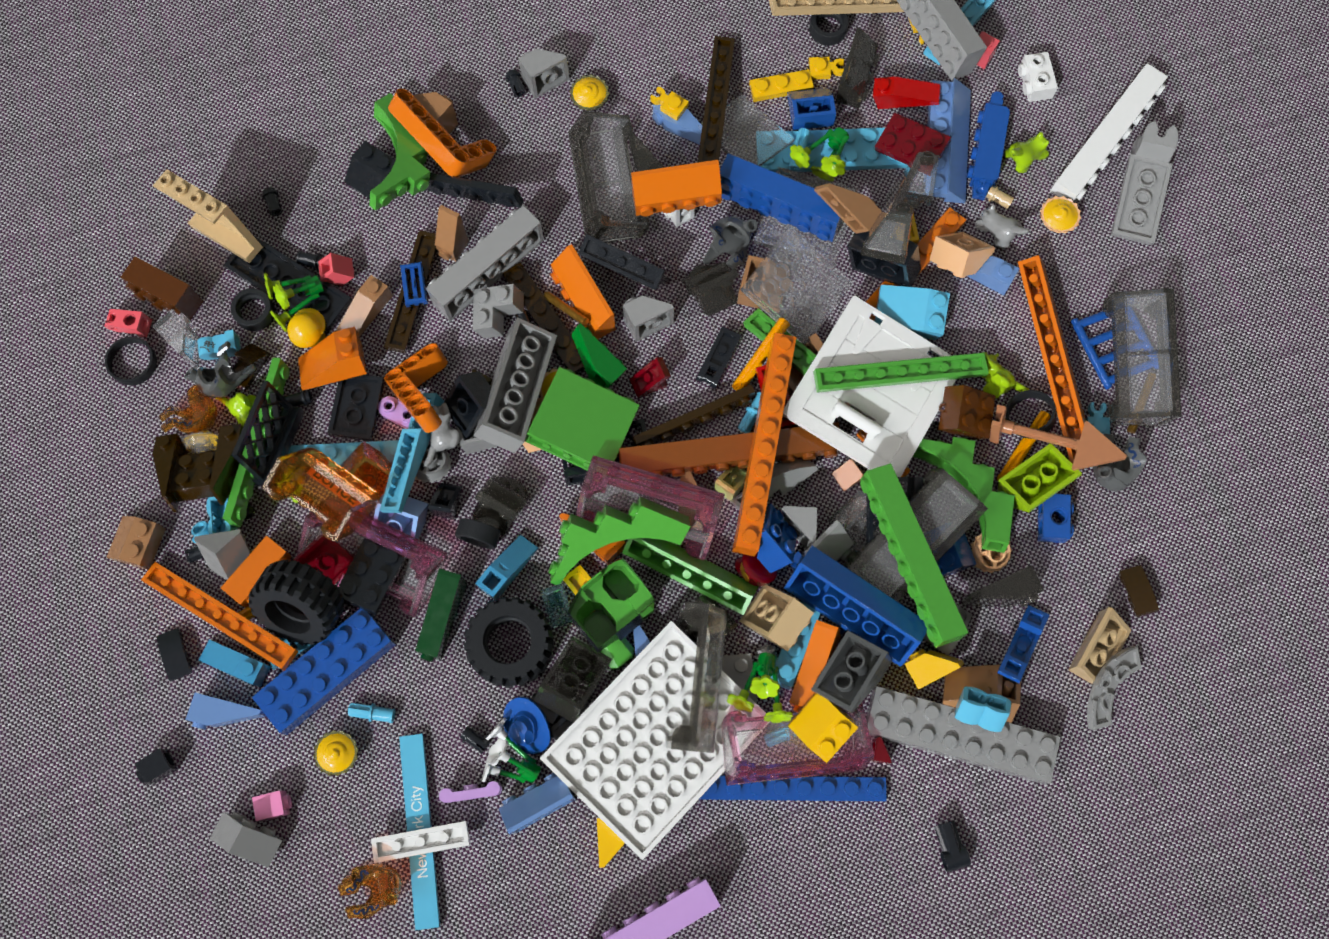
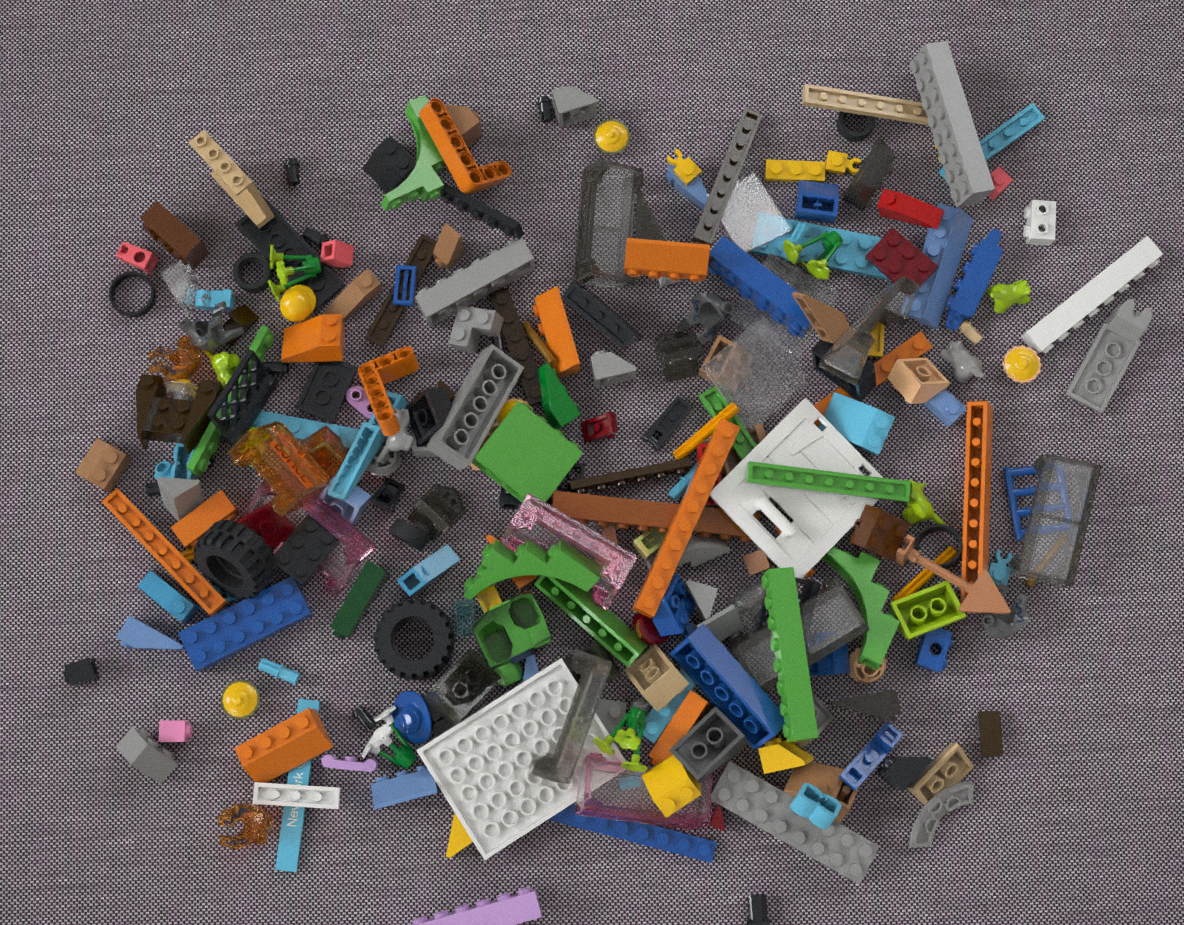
camera: 10 degrees right, 5 degrees up
(173, 654) = (117, 575): black slope -> none
(395, 791) = (284, 746): none -> orange slope
(1060, 651) = (902, 770): none -> black slope

